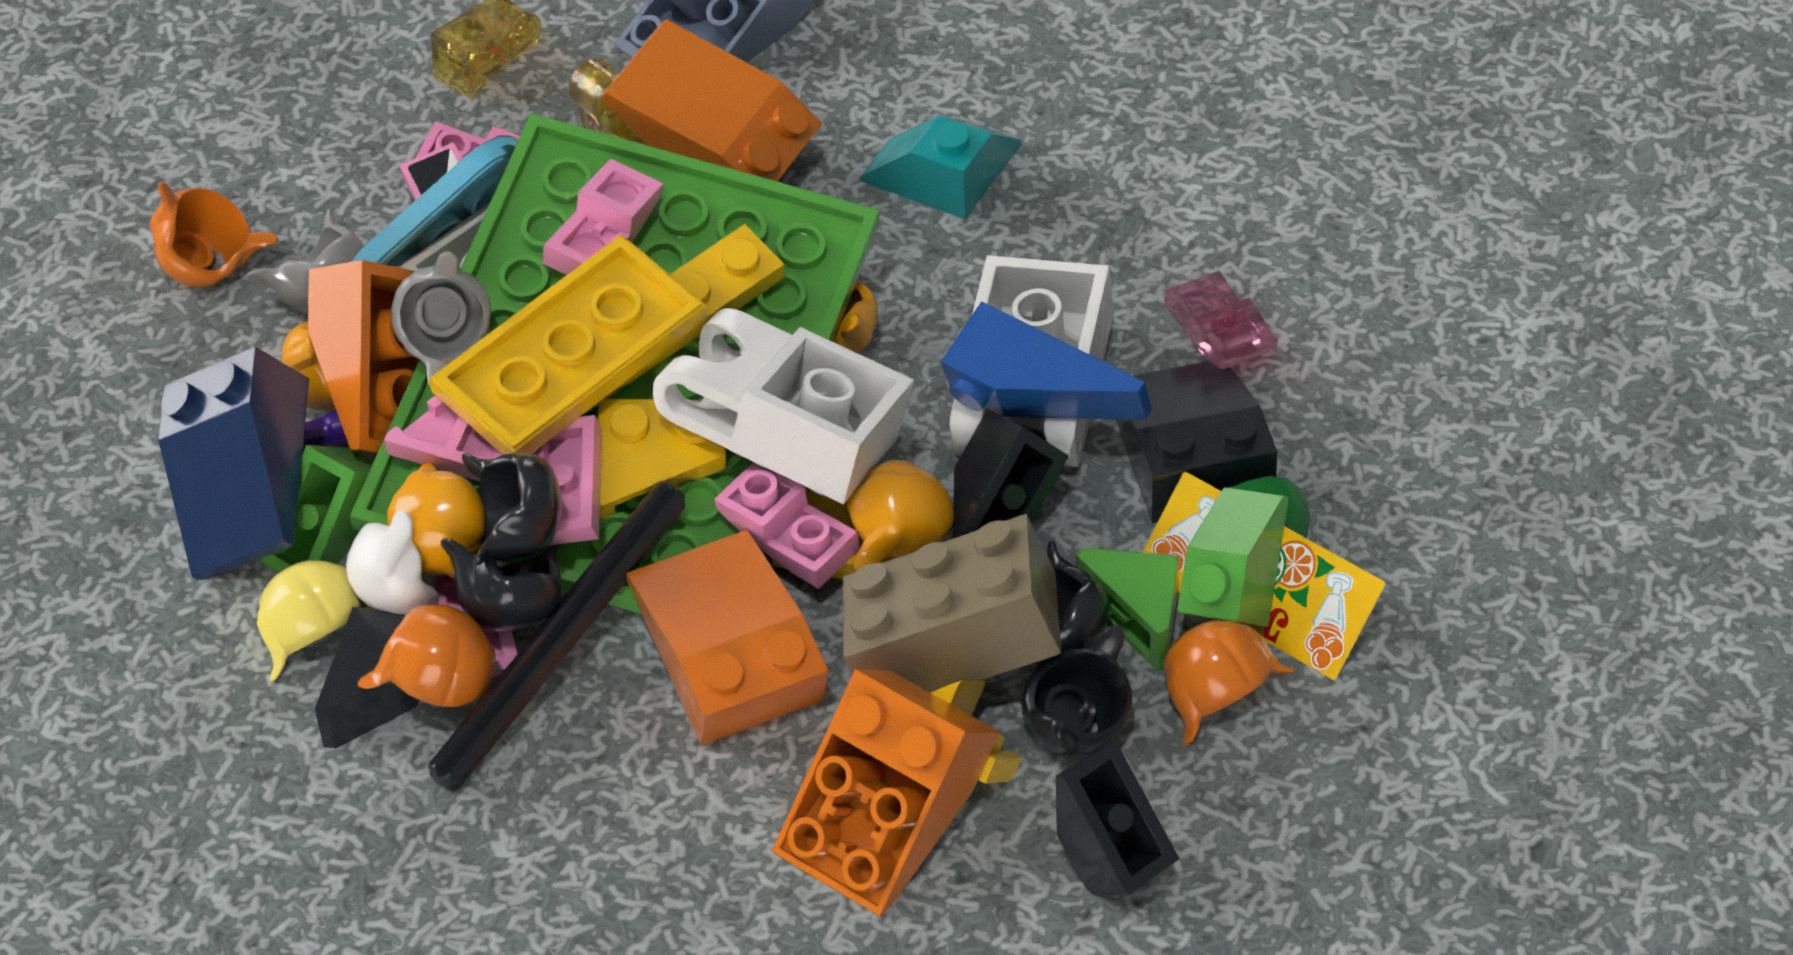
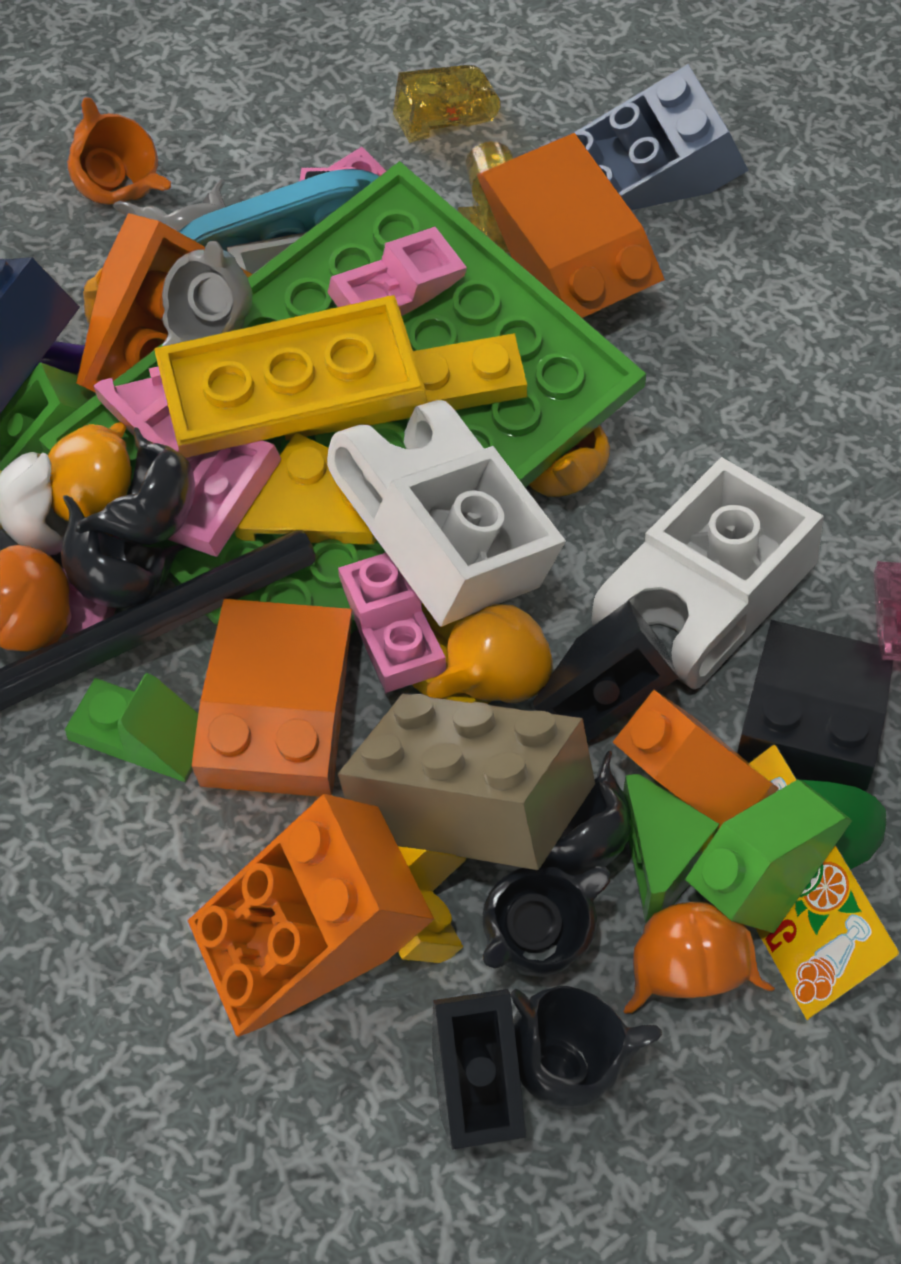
camera: 25 degrees right, 5 degrees up
(627, 720) = (140, 726): none -> bright green slope
(942, 163) = (756, 361): teal slope -> none
(1034, 375) = (684, 586): blue slope -> none
(1123, 516) = (691, 760): none -> orange slope
(1179, 775) = (557, 1026): none -> black hair

